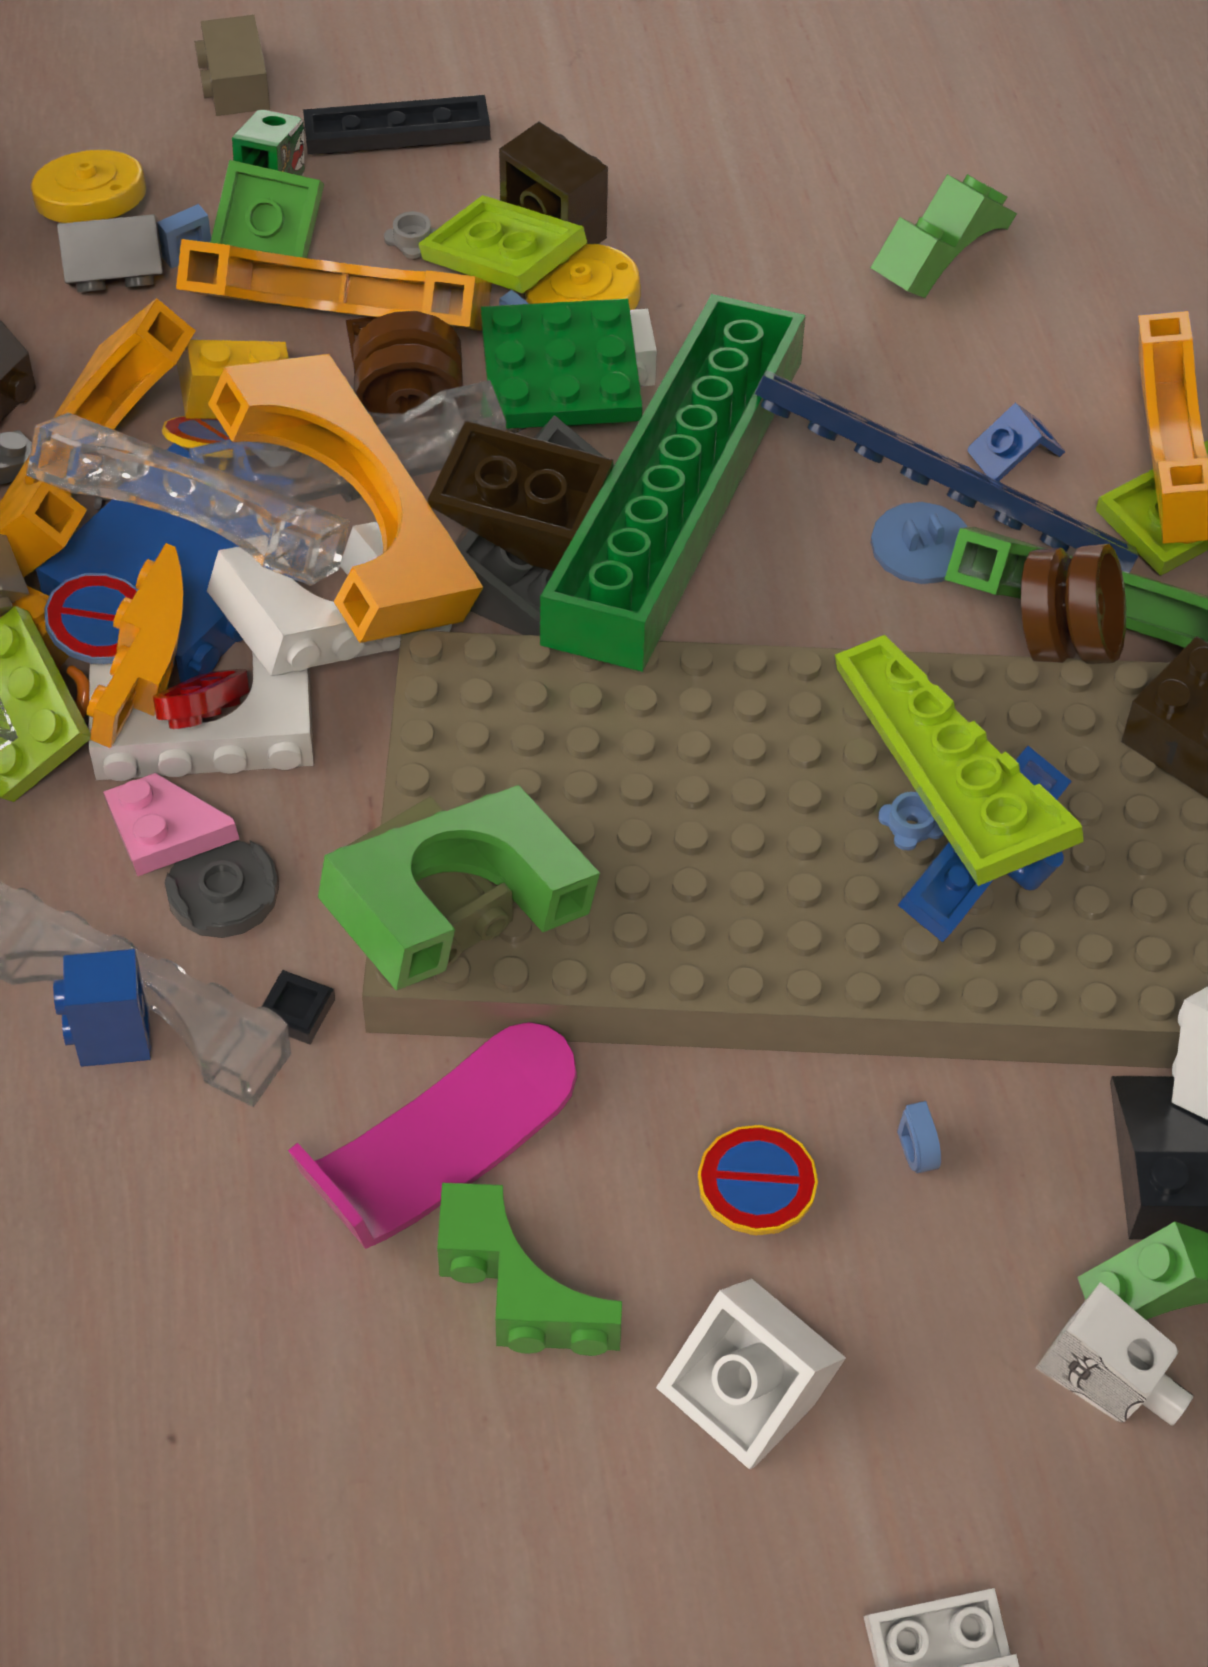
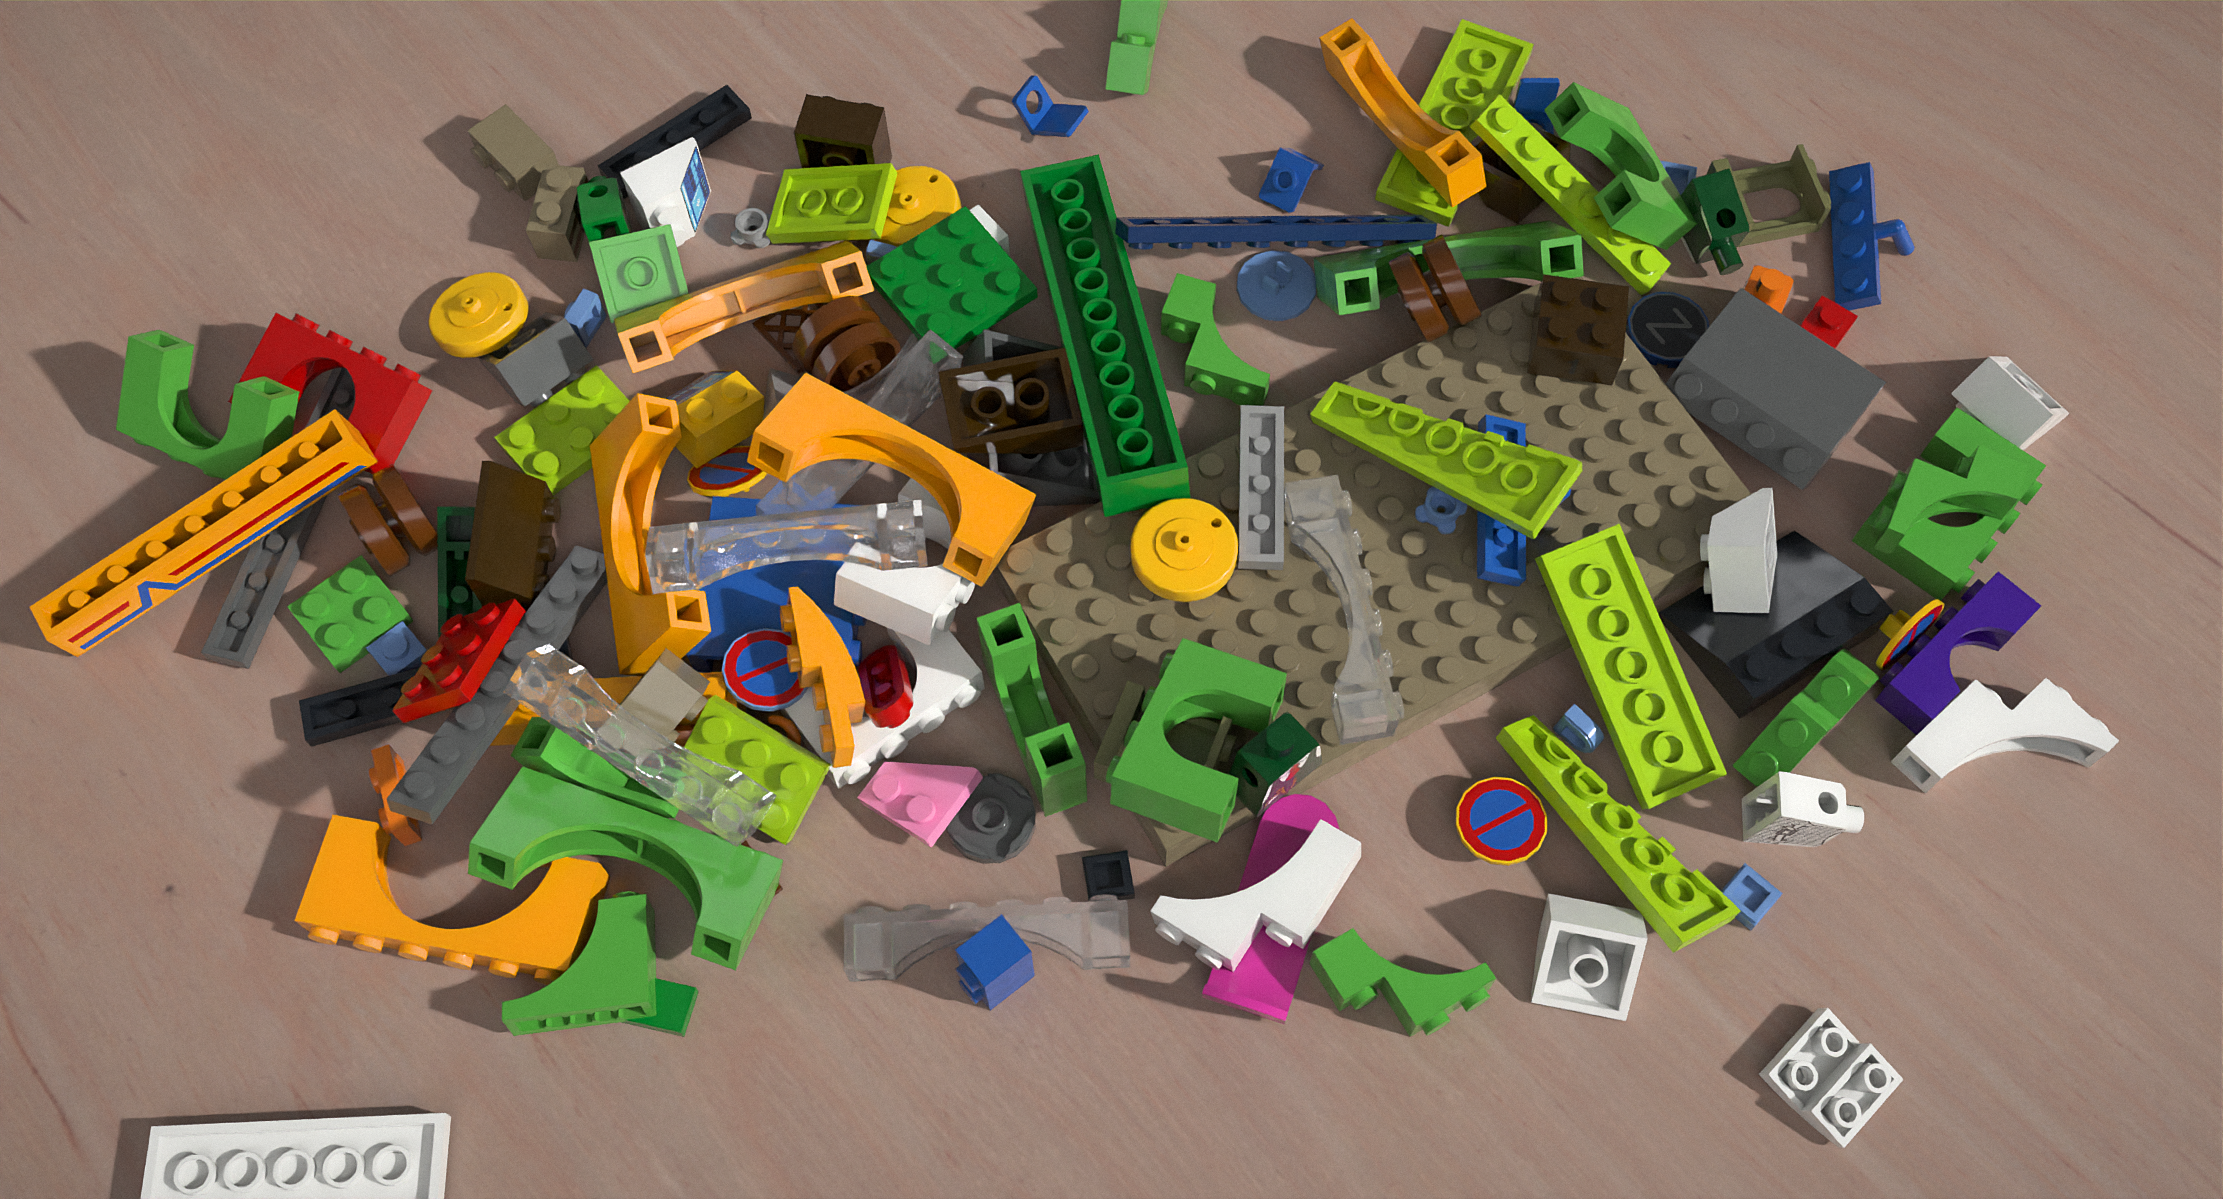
camera: 30 degrees left, 10 degrees up
(68, 328) = (558, 433): none -> lime plate
(211, 133) = (555, 215): none -> dark tan brick
(343, 763) = (1045, 747): none -> bright green arch
(353, 156) = (669, 190): none -> white slope
(447, 1121) = (1285, 902): none -> white arch
(527, 958) = (1278, 759): none -> dark green torso
(595, 714) = (1184, 549): none -> yellow wheel
(679, 942) = (1320, 526): none -> clear arch
(726, 699) = (1261, 488): none -> light grey plate
(795, 524) = (1210, 364): none -> bright green arch
(796, 272) = (1048, 118): none -> blue bracket
(882, 1314) = (1669, 896): none -> lime wing
(993, 1424) = (1751, 895): none -> medium blue tile
(1016, 1096) = (1631, 667): none -> lime plate

